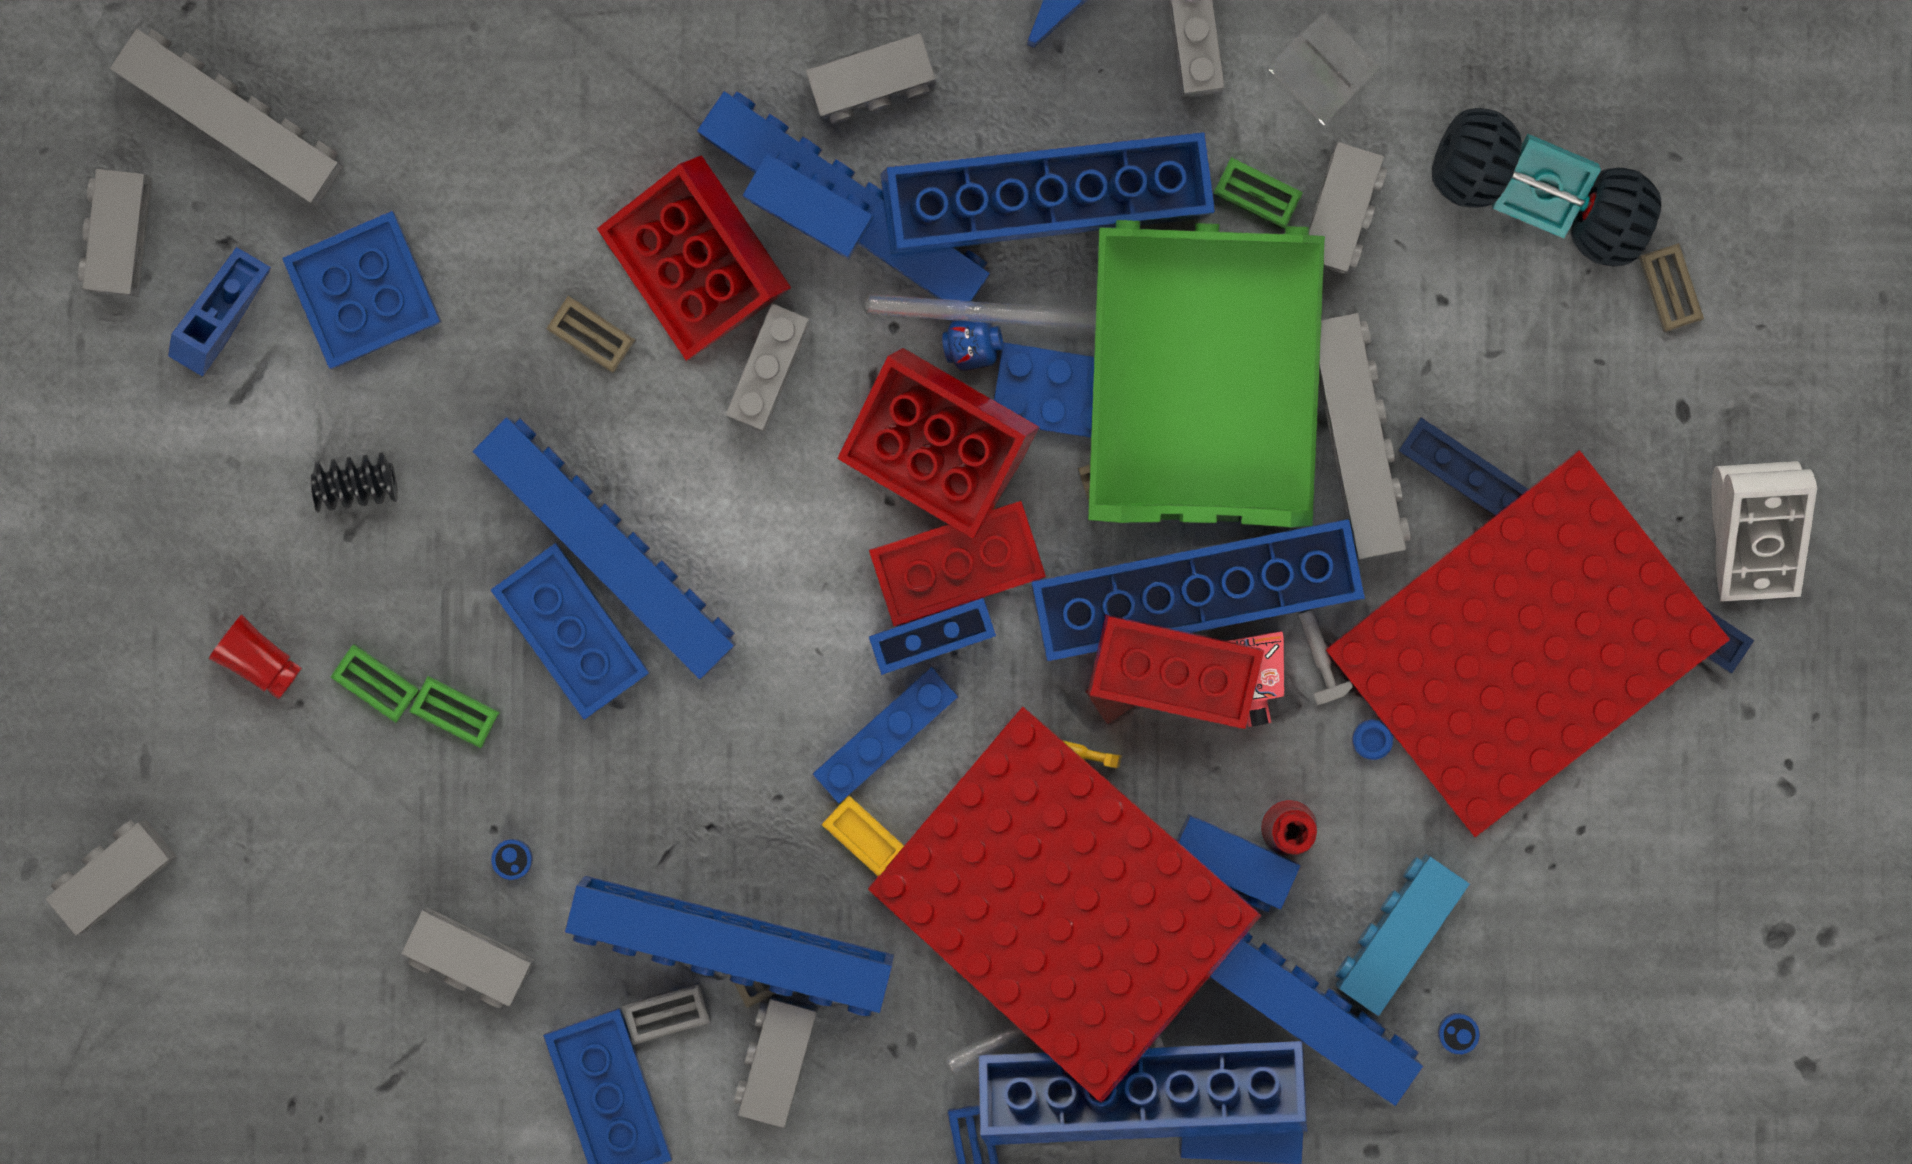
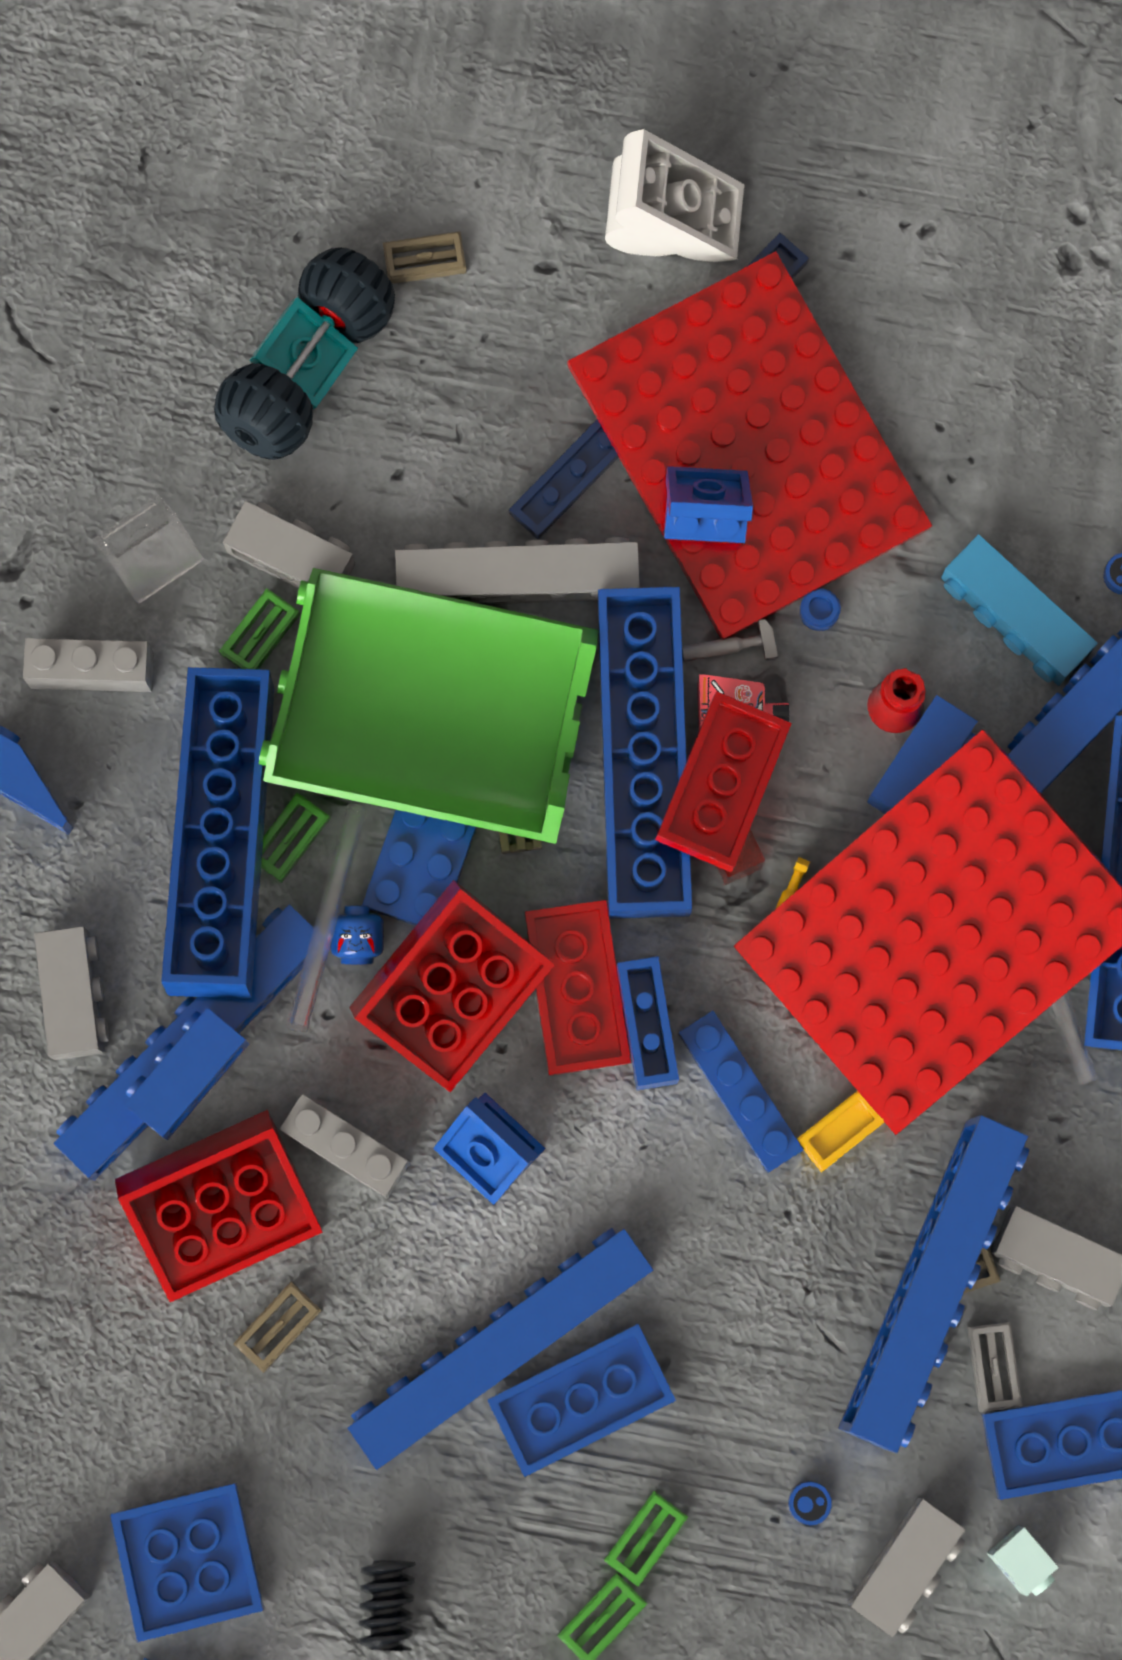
camera: 80 degrees left, 10 degrees down
(490, 1065) = (1023, 1562): none -> light aqua brick
(790, 505) = (488, 1147): none -> blue bracket
(1054, 275) = (322, 819): none -> bright green tile
(1454, 612) = (707, 504): none -> blue bracket

